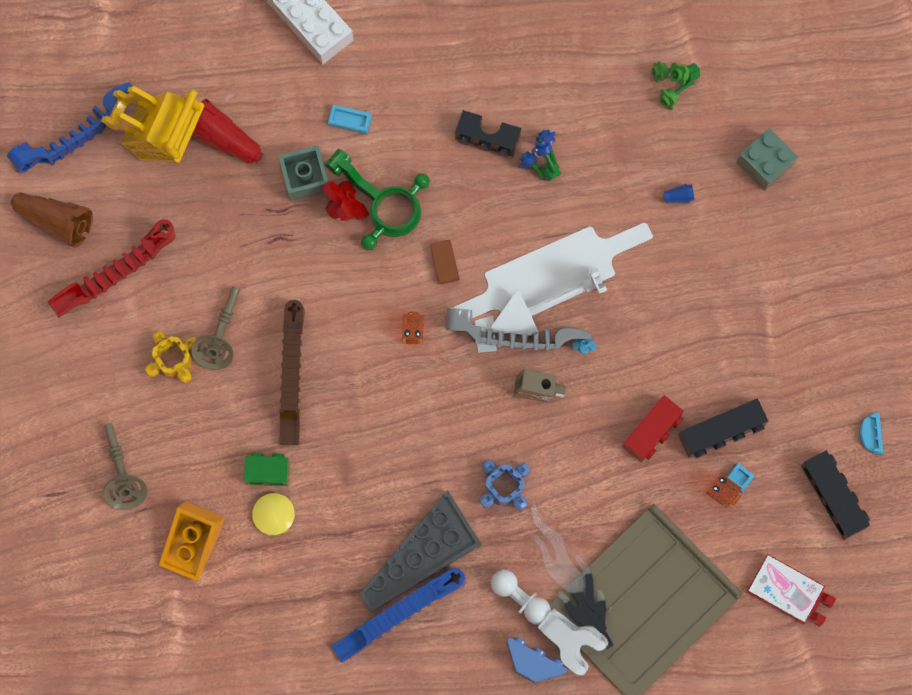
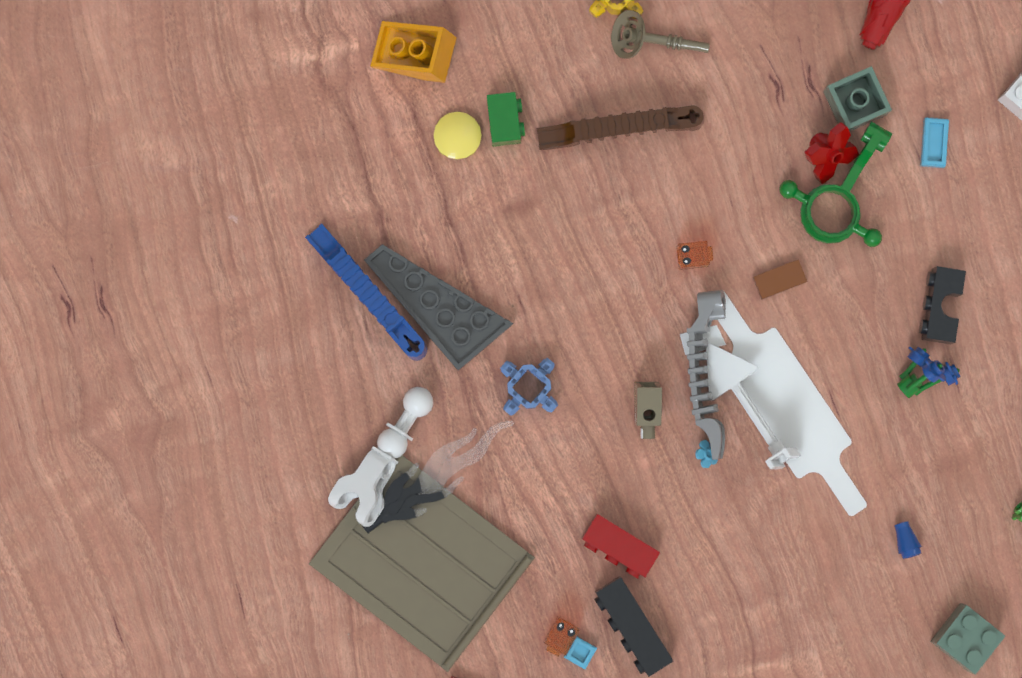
camera: 80 degrees right, 10 degrees up
(533, 663) = (334, 447): medium blue slope -> none

